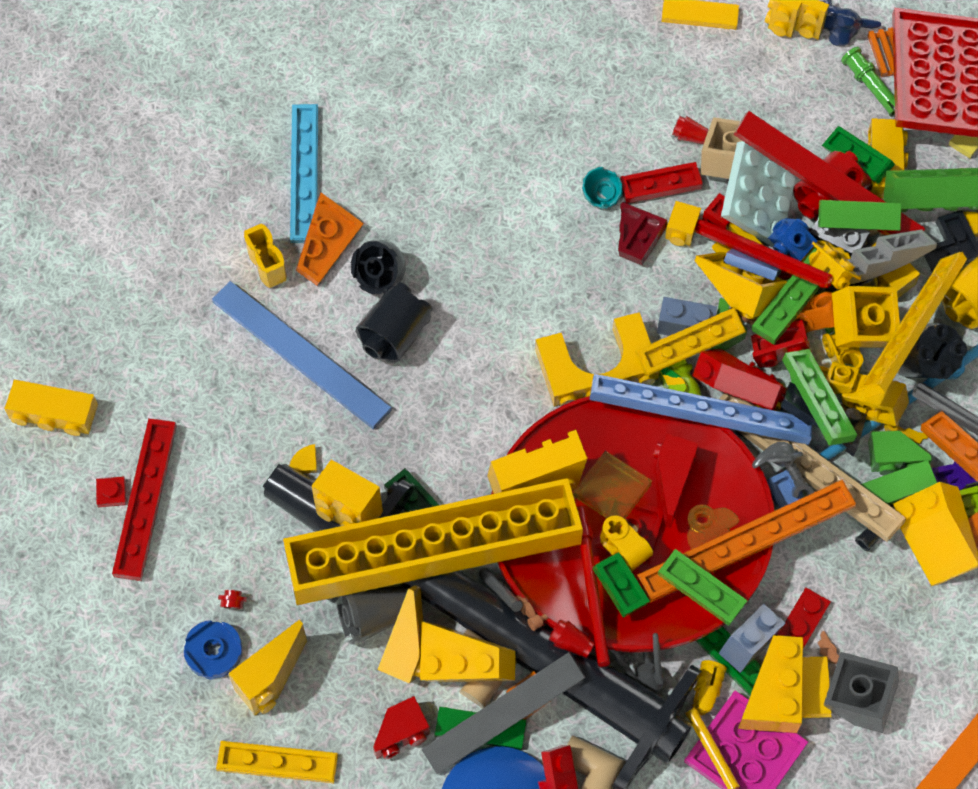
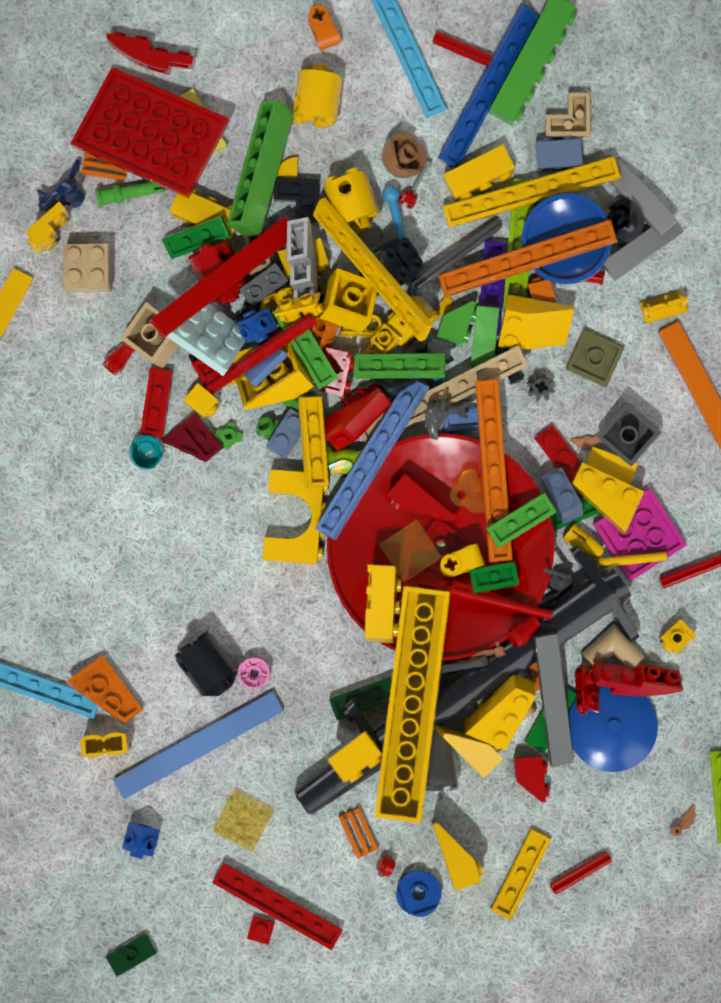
camera: 75 degrees left, 20 degrees up
(38, 366) = (131, 955): none -> dark green plate
(51, 407) = (174, 956): yellow brick -> none
(171, 327) = (140, 840): none -> blue brick
(231, 430) = (243, 821): none -> clear yellow tile
(278, 540) = (366, 850): none -> orange tile
(305, 460) = (291, 773): yellow tile -> none
(377, 266) = (151, 658): black cylinder -> none
(412, 373) = (245, 677): none -> bright pink wheel
(527, 755) = (589, 696): none -> red hinge
(658, 272) = (229, 429): none -> bright green plate
(685, 294) = (267, 427): none -> bright green plate
(772, 67) = (86, 268): none -> tan brick
(859, 215) = (261, 266): bright green tile -> none
(872, 566) = (535, 390): none -> dark grey gear
(932, 624) = (595, 358): none -> olive tile

